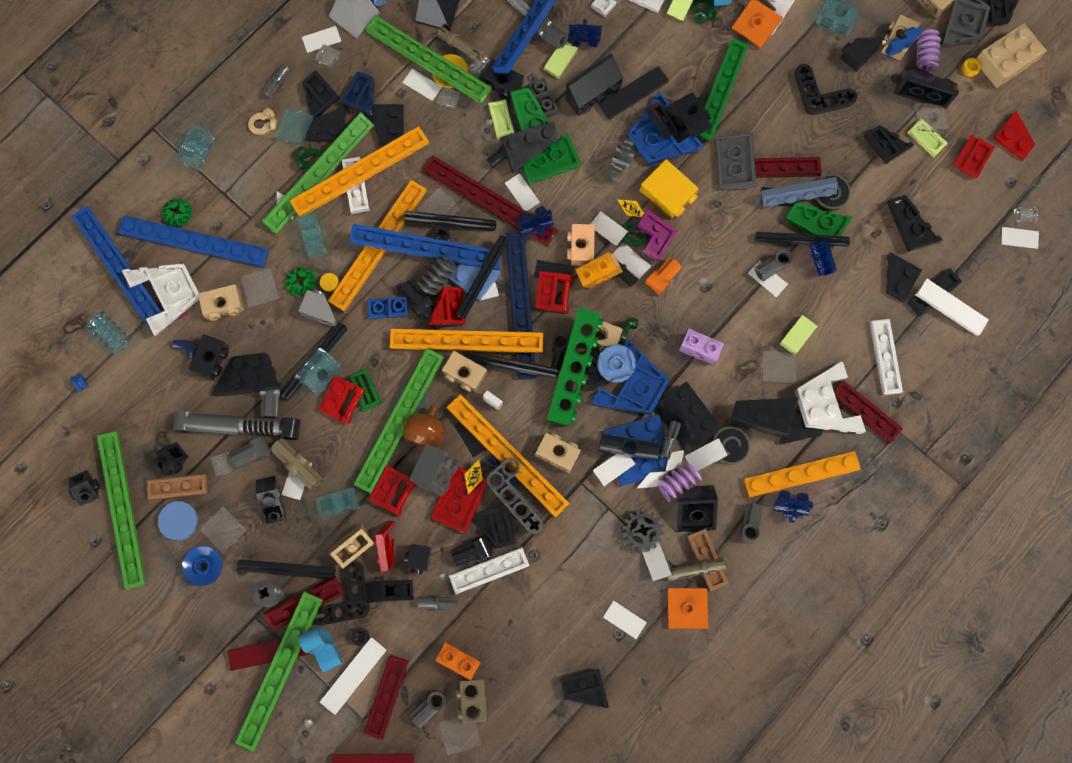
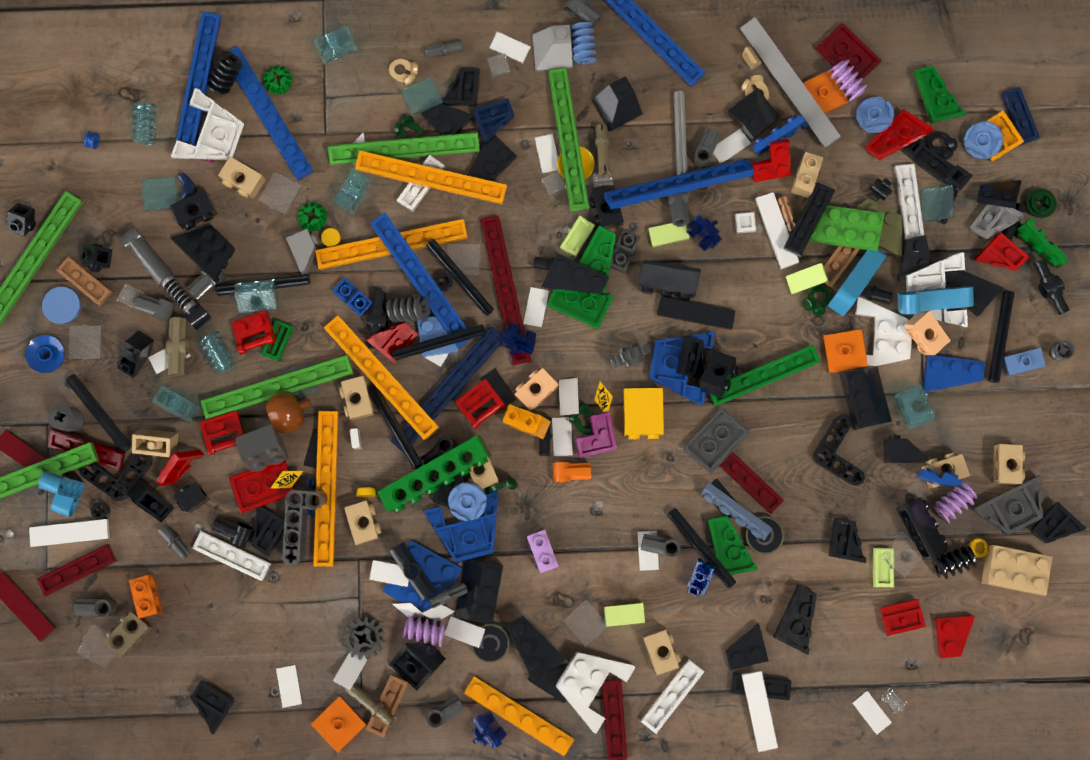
camera: 50 degrees right, 5 degrees up
(135, 239) = (225, 73): none -> black piece
(170, 372) = (159, 193): none -> clear light blue piece
(330, 440) = (216, 354): none -> clear light blue piece
(538, 429) = (366, 492): none -> yellow tile
(800, 42) = (865, 397): none -> black slope
(838, 335) = (653, 642): none -> tan brick
(968, 87) = (954, 561): none -> black piece

